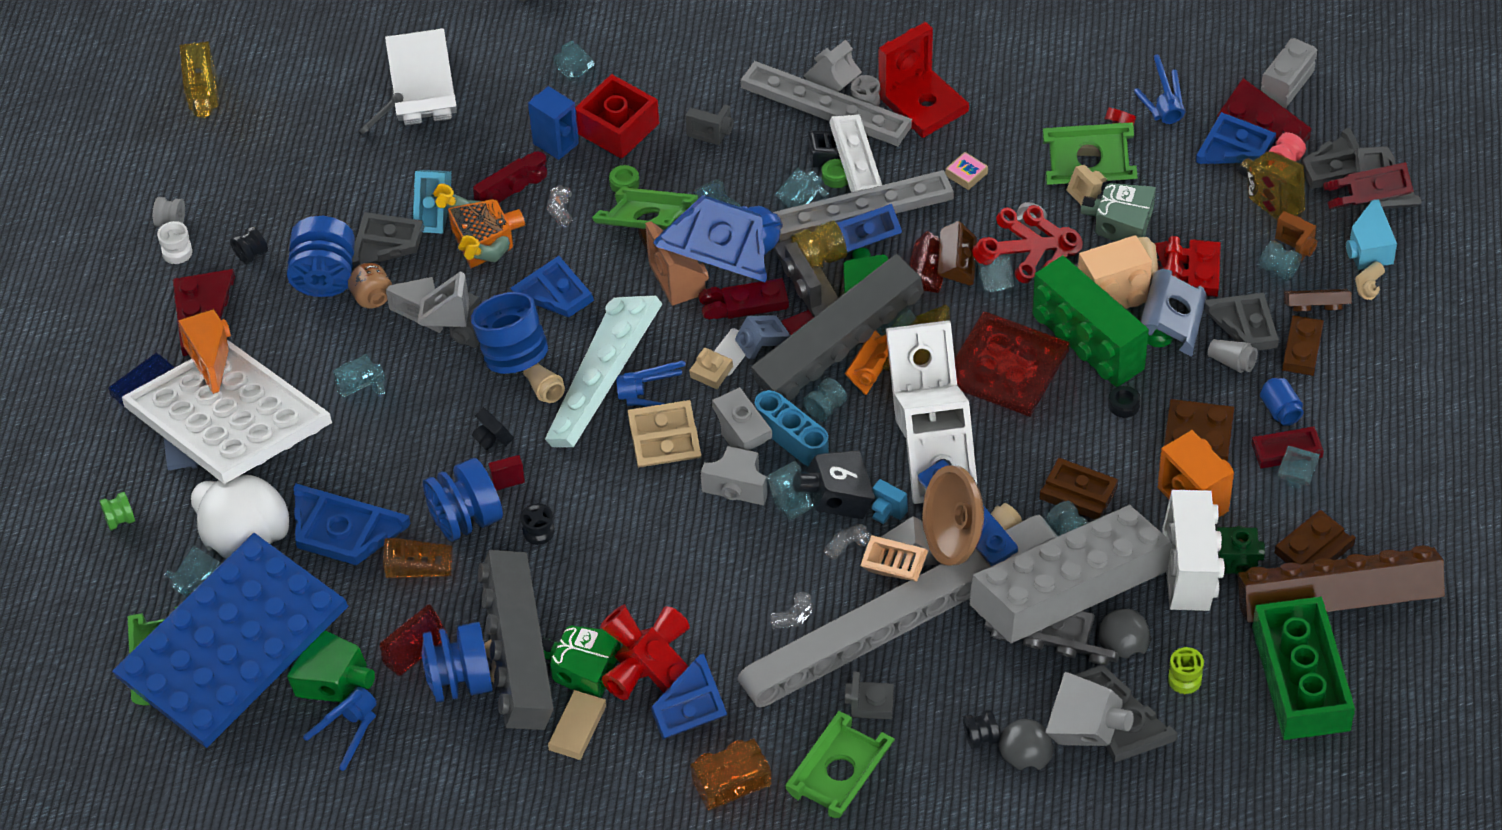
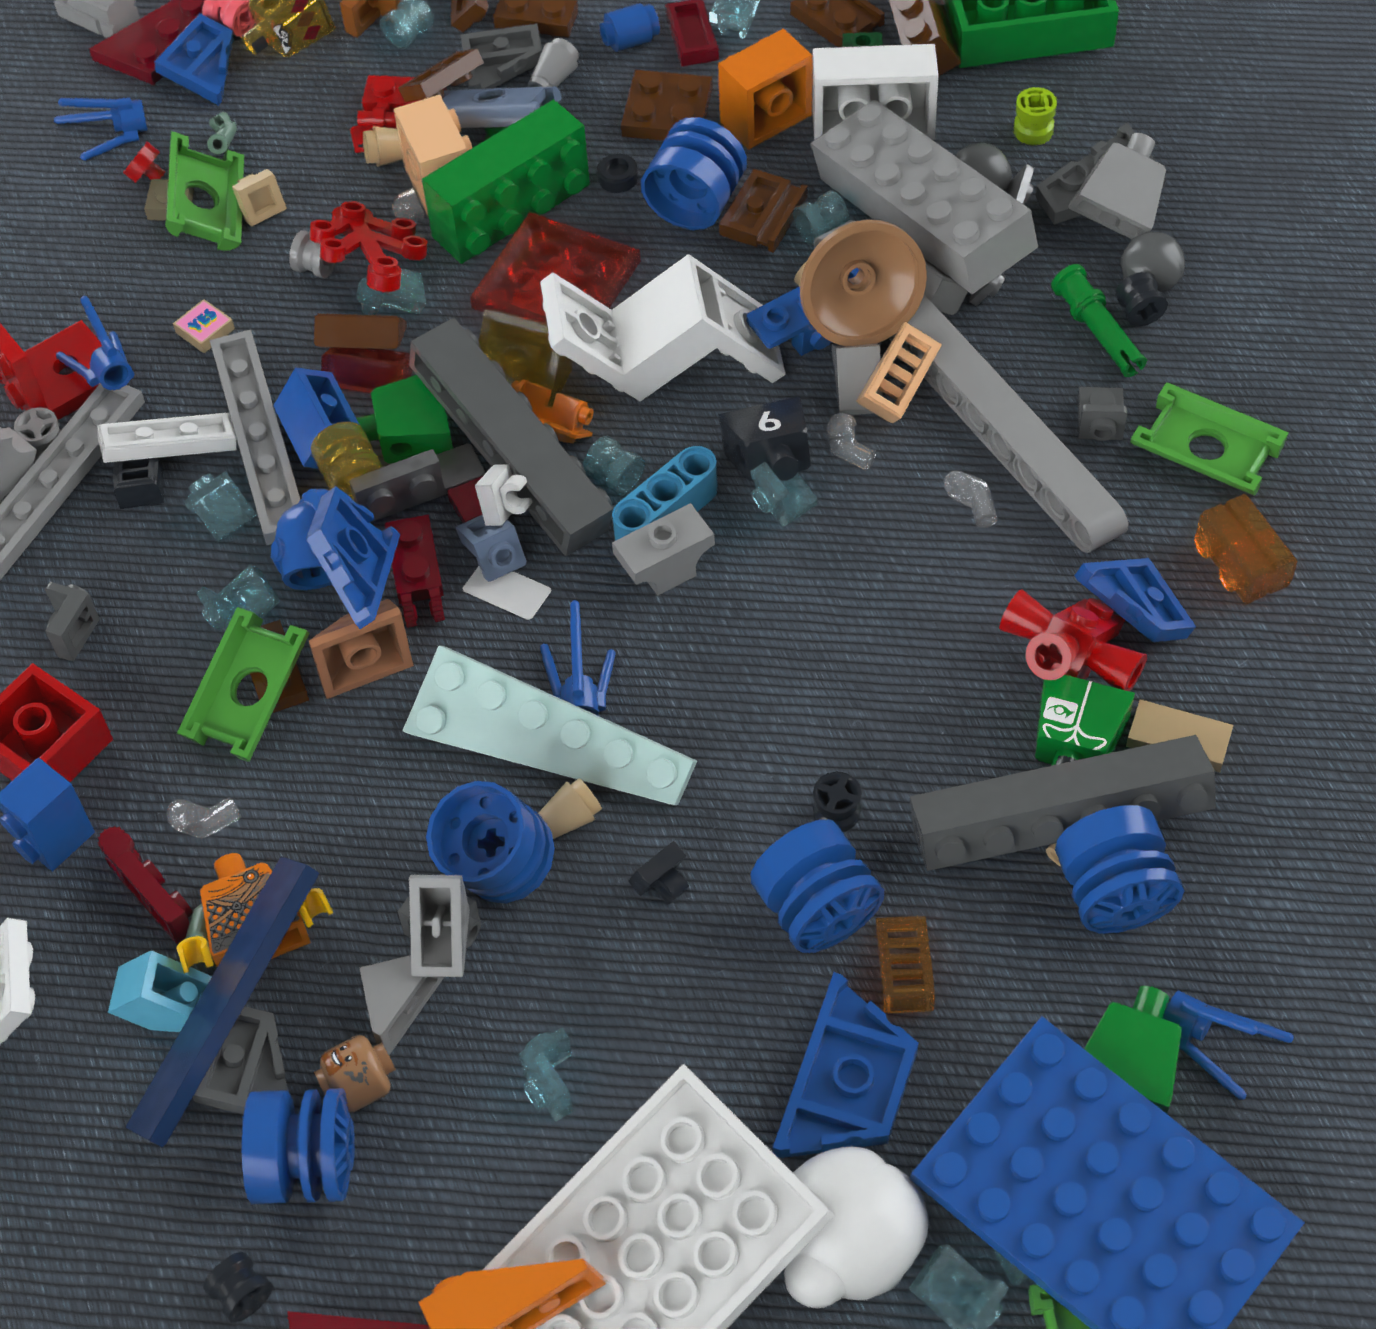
camera: 90 degrees left, 5 degrees up
(404, 645) = (1059, 956): clear red slope -> none
(418, 215) = (222, 1001): none -> dark blue tile
(506, 472) = (743, 844): dark red tile -> none
(555, 288) = (379, 808): blue wing -> none
(624, 176) = (156, 734): bright green tile -> none
(664, 433) = (665, 657): tan slope -> none
(711, 368) = (543, 604): tan tile -> none
(735, 477) = (749, 559): light grey brick -> none
(784, 324) = (499, 496): none -> white tile
(834, 174) = (183, 471): bright green tile -> none
(888, 502) = (792, 384): dark azure tile -> none
(913, 112) = (107, 362): none -> blue plant
(975, 695) = (1089, 307): none -> green pin
(1104, 435) = (694, 173): none -> blue wheel
(1121, 211) = (312, 160): sand green torso -> none
(1148, 162) = (224, 133): none -> sand green arm
(1194, 270) = (451, 70): none -> reddish brown plate

